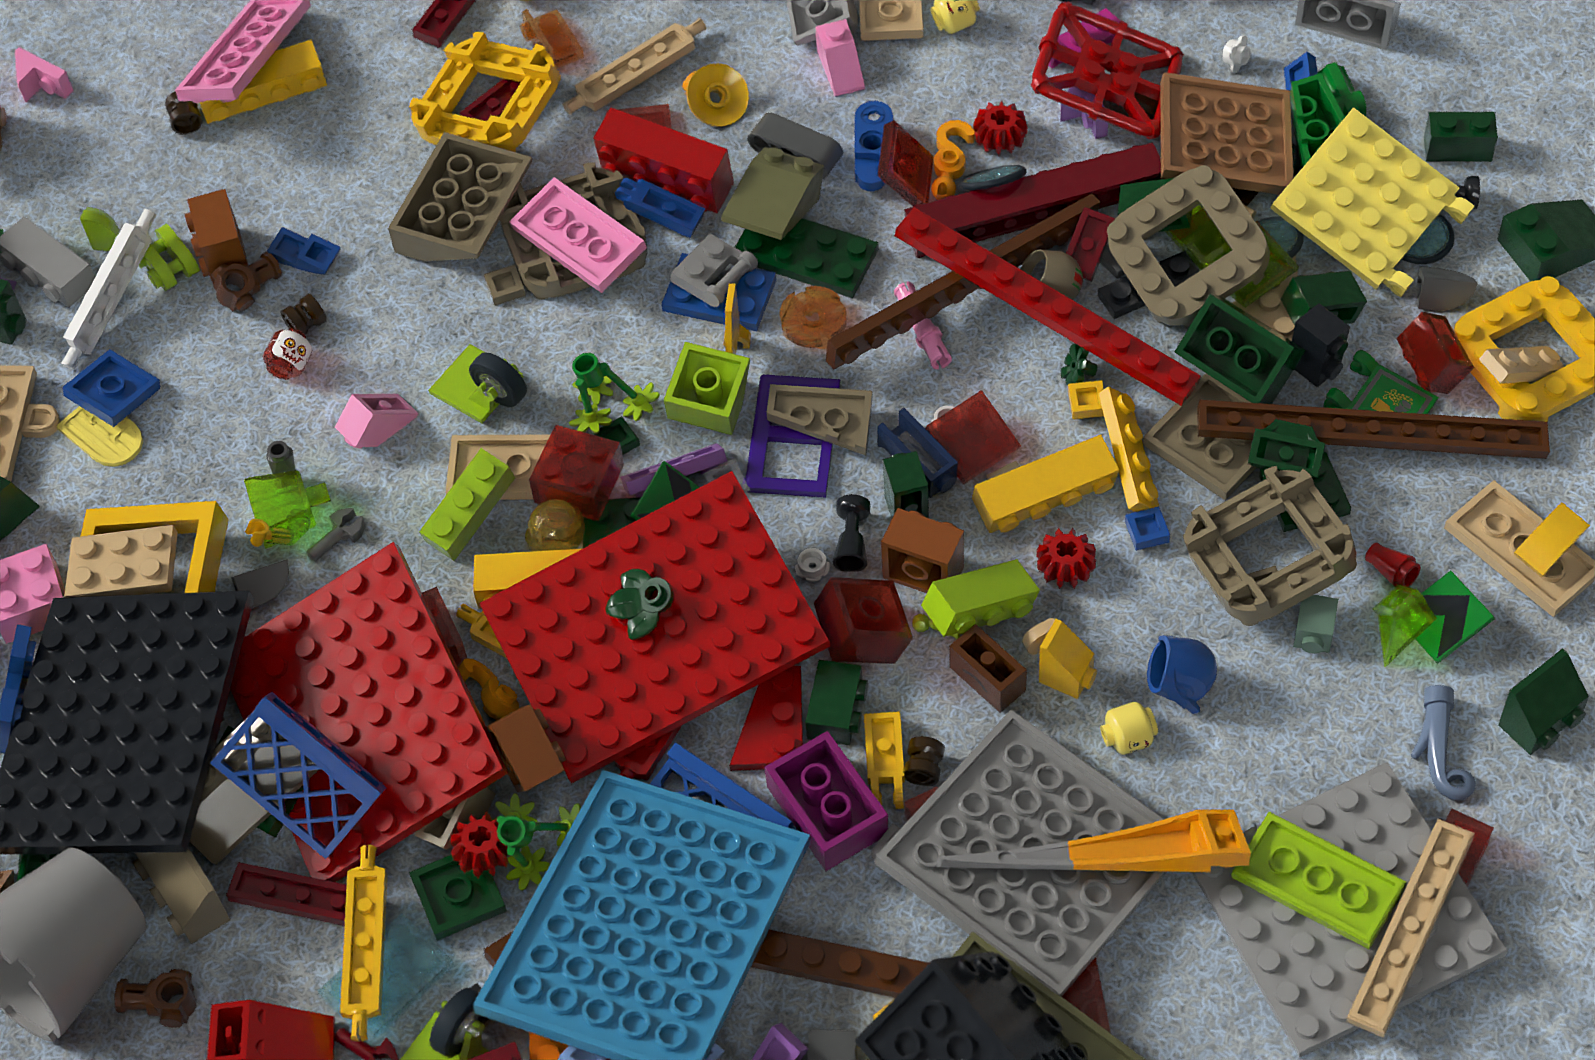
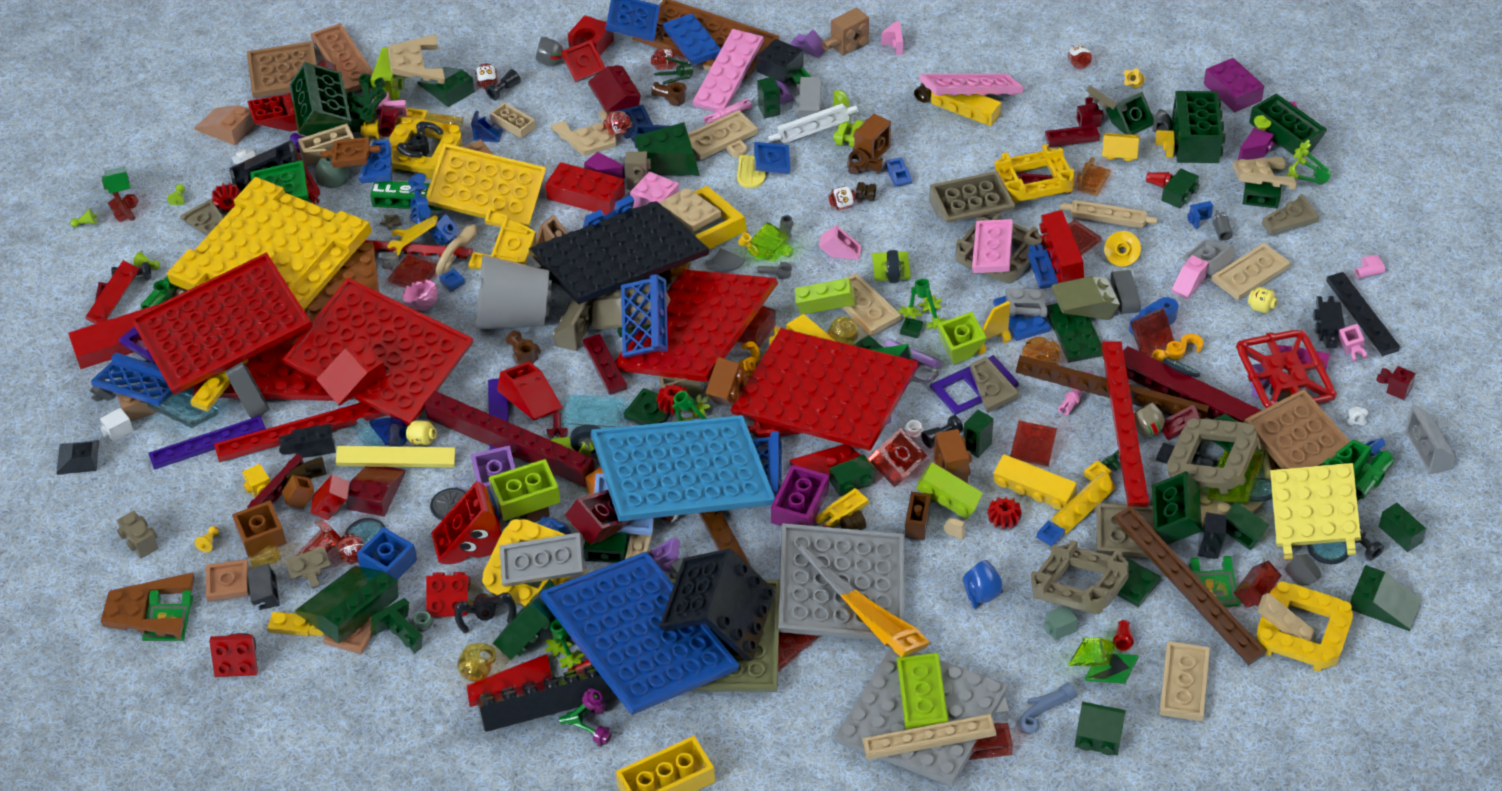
camera: 50 degrees right, 10 degrees down
(364, 943) = (597, 390): yellow plate -> none
(504, 285) = (948, 244): dark tan tile -> none
(577, 470) = (874, 319): clear red brick -> none
(635, 602) = (826, 372): dark green plate -> none
(911, 436) = (1004, 431): dark blue window -> none
(1000, 127) = (1214, 355): red gear -> none
(1066, 661) = (947, 539): yellow slope -> none
(1129, 728) = (939, 585): light yellow head -> none
(1287, 447) = (1138, 553): dark green slope -> none
(1551, 539) = (1193, 682): yellow slope -> none

